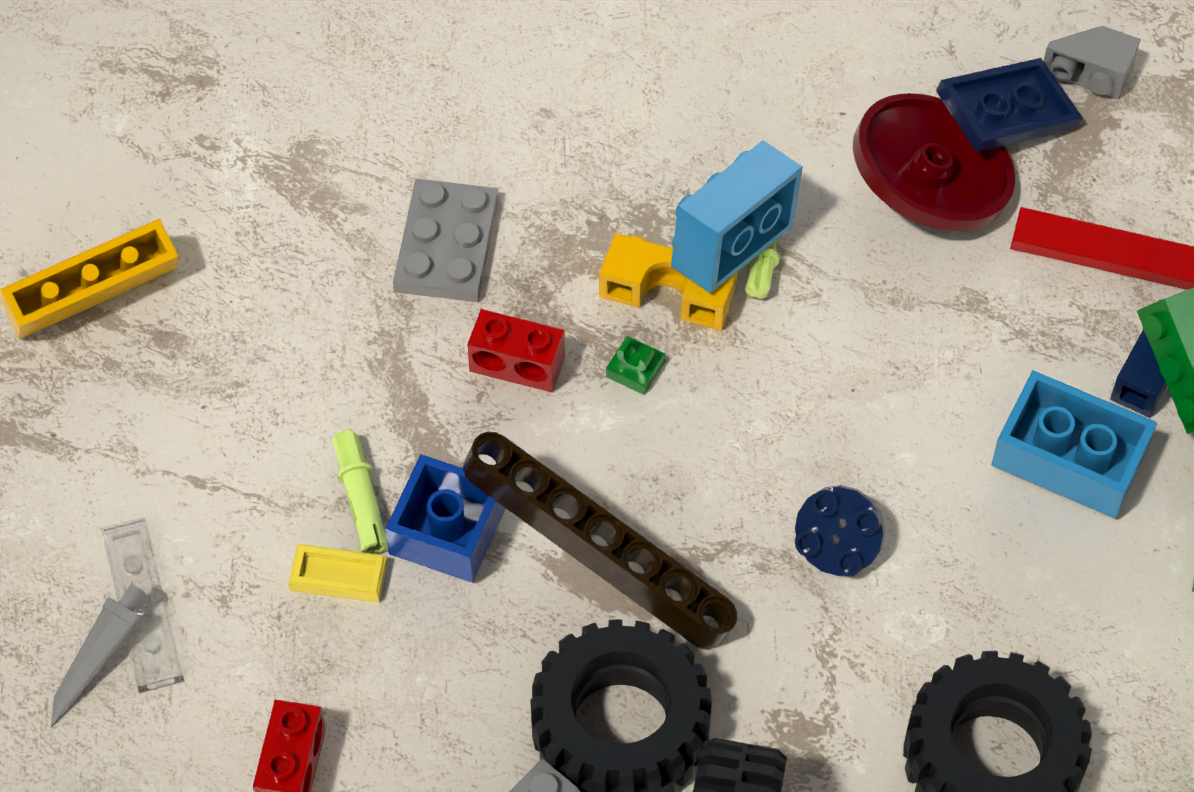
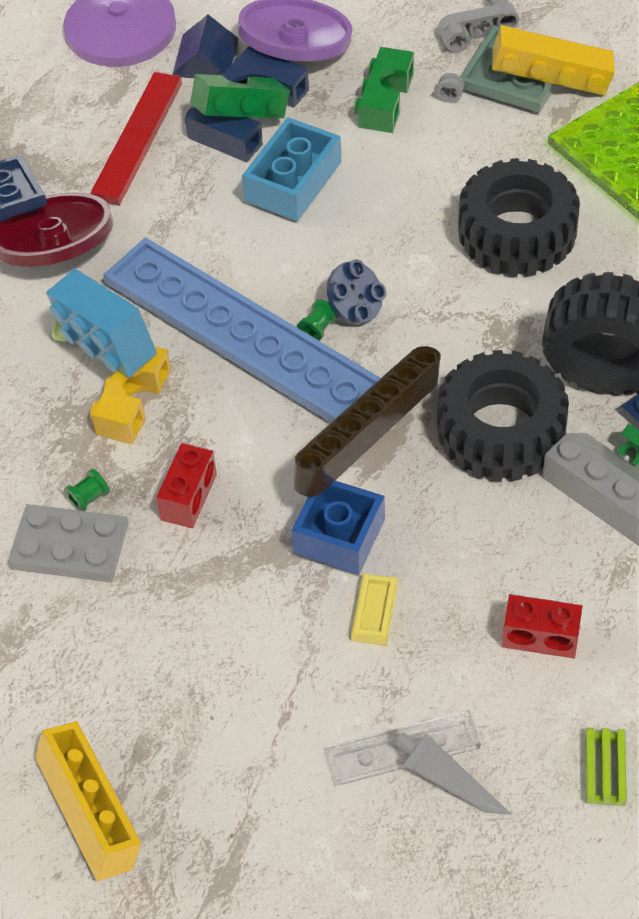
camera: 85 degrees left, 5 degrees down
(356, 478) = (305, 592): yellowish green axle -> none
(515, 247) = (86, 490): none -> green bush
(635, 365) = (200, 417): green tile -> none
(777, 402) = (240, 330): none -> medium blue plate
(793, 487) = (318, 319): none -> green bush

